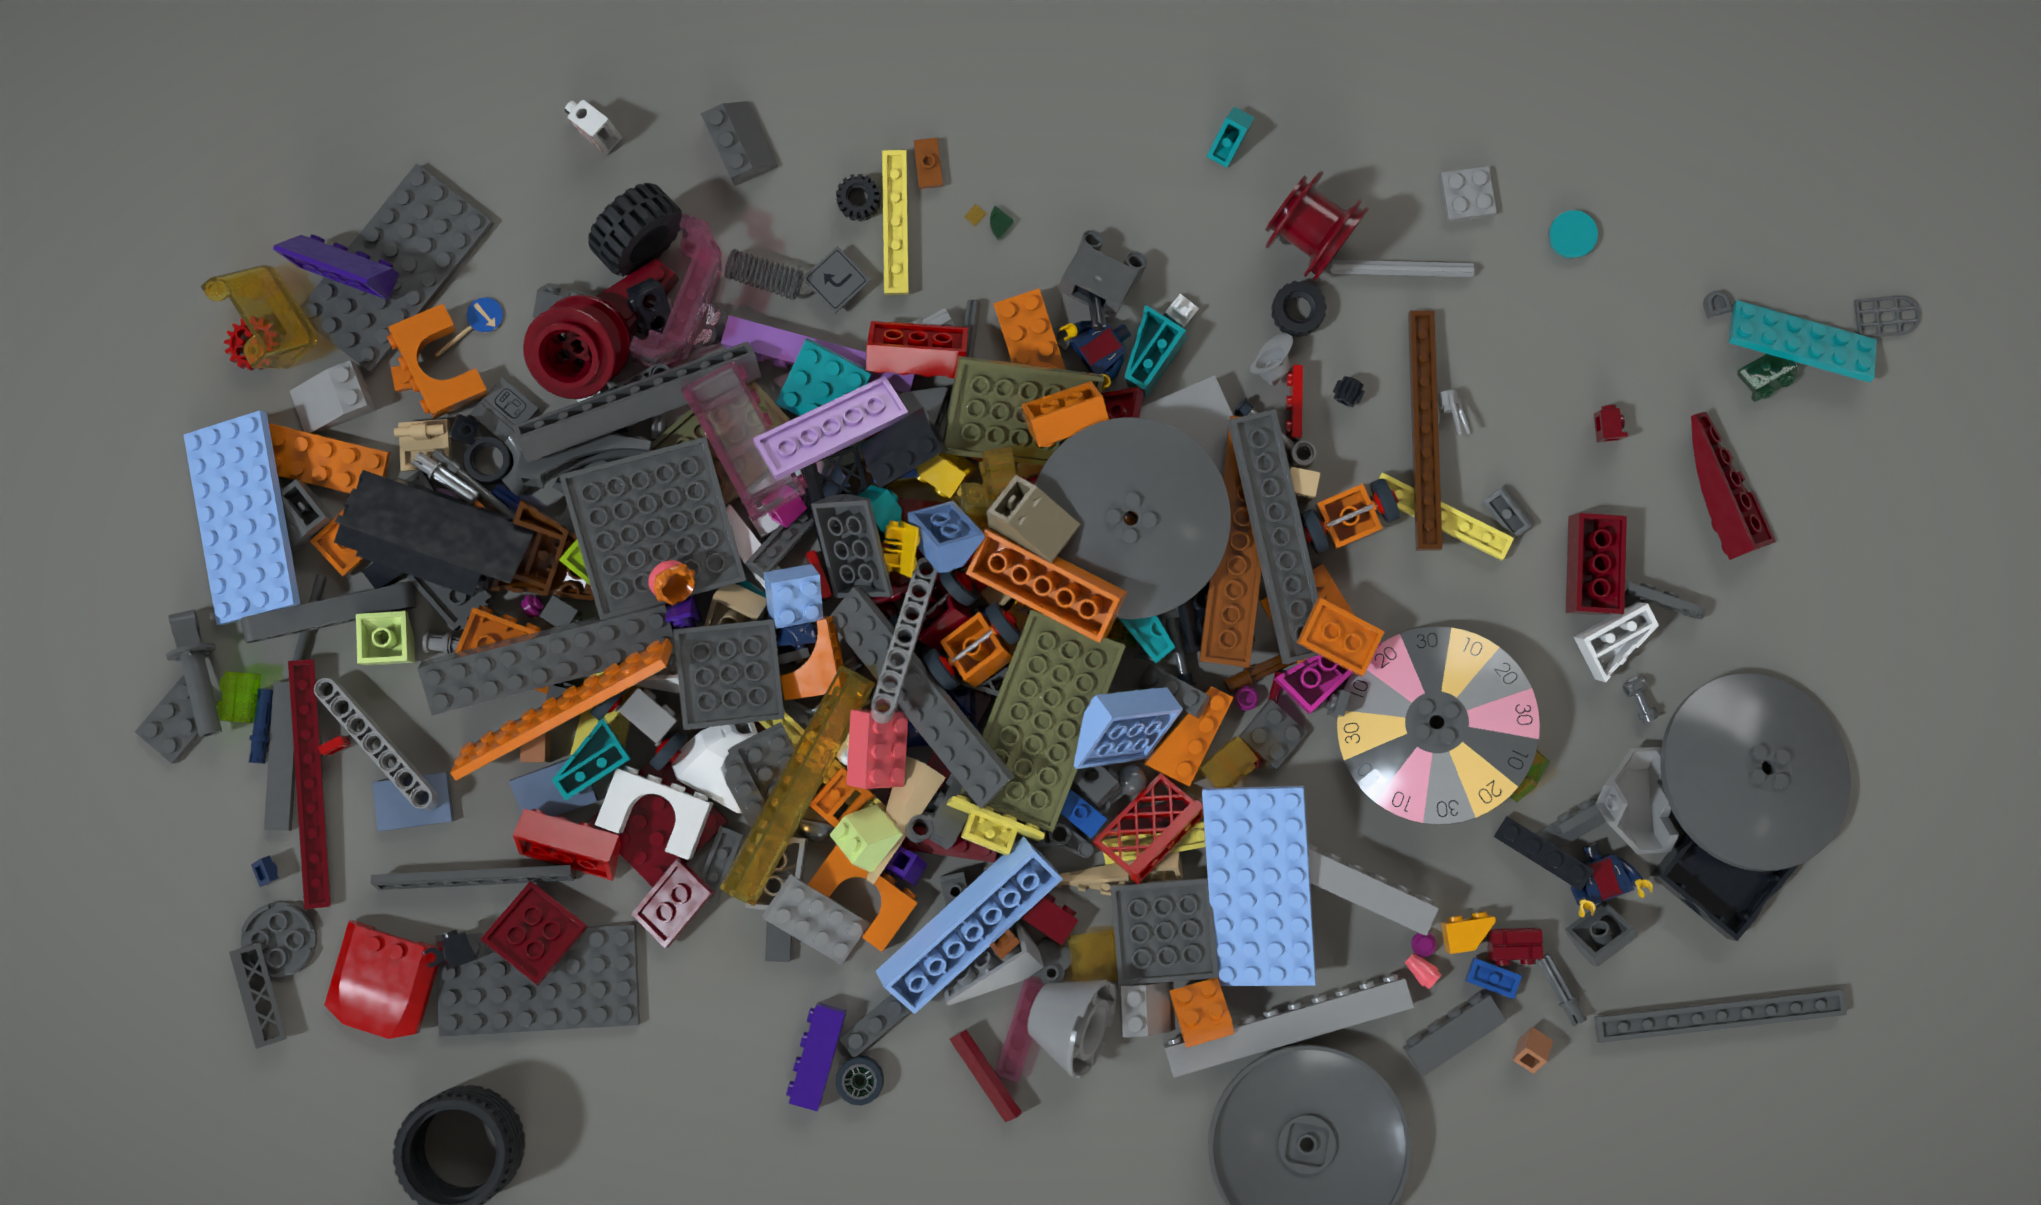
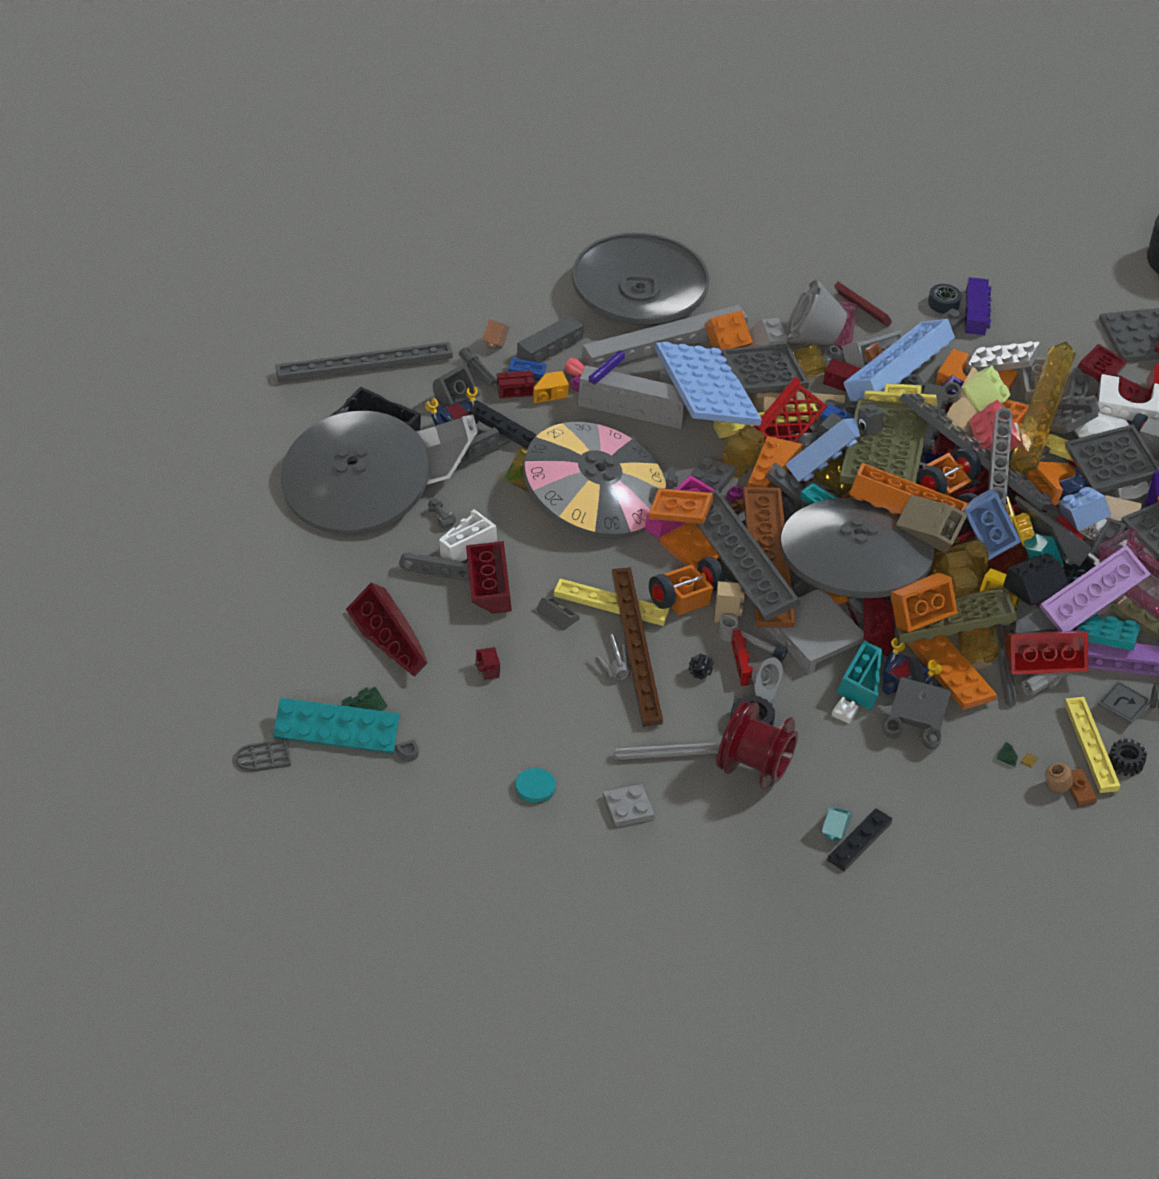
camera: 170 degrees right, 40 degrees down
(954, 165) = (1059, 777): none -> medium nougat head
(1057, 756) = (870, 419): none -> dark grey brick
(1207, 115) = (860, 839): none -> black plate
(1400, 921) = (606, 367): none -> dark purple axle

